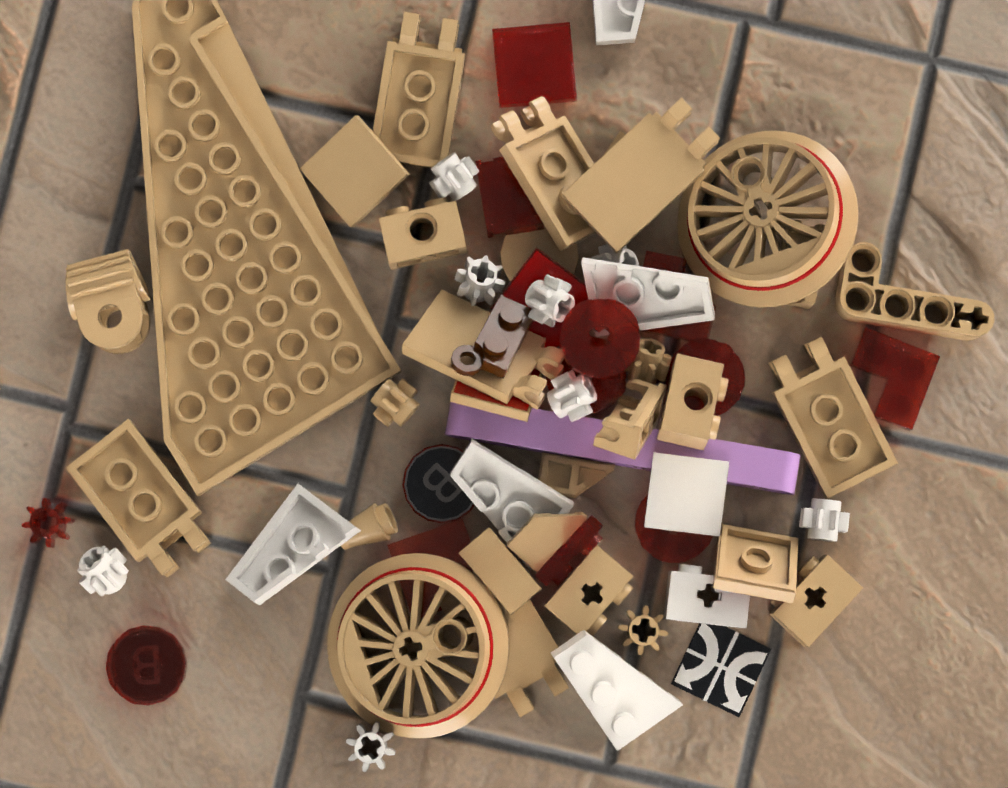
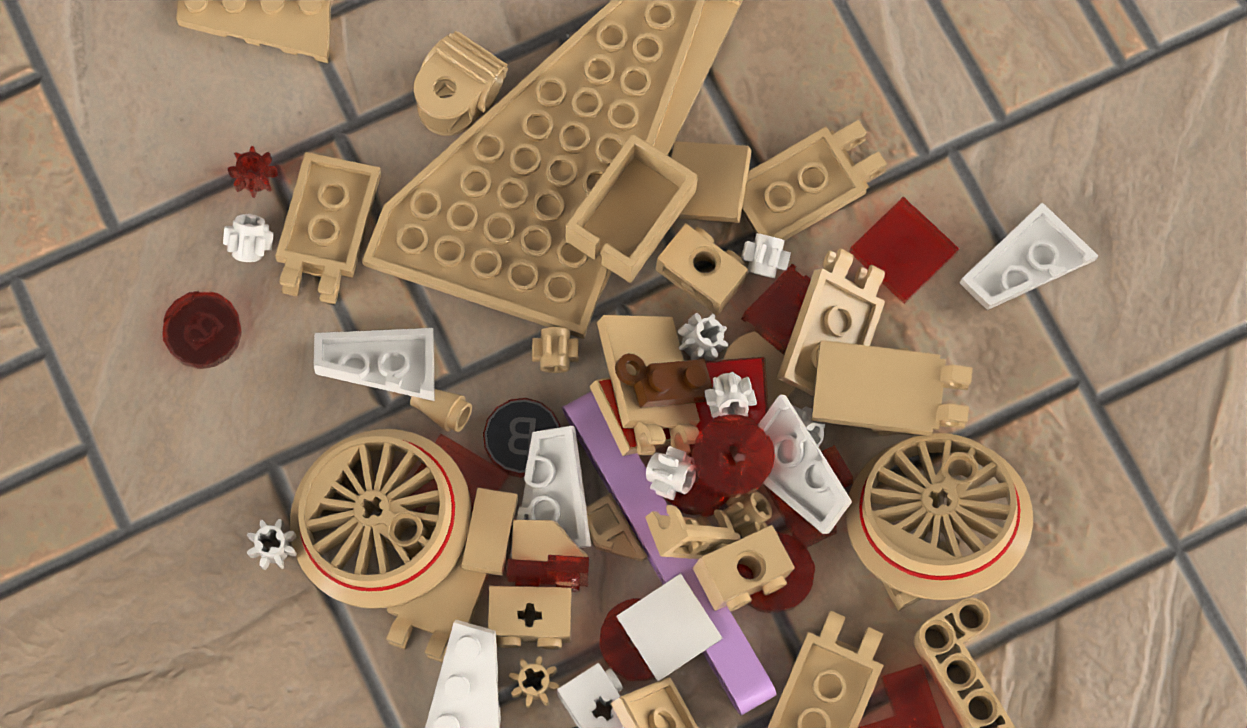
camera: 45 degrees right, 10 degrees down
(333, 250) = (631, 207): none -> tan piece

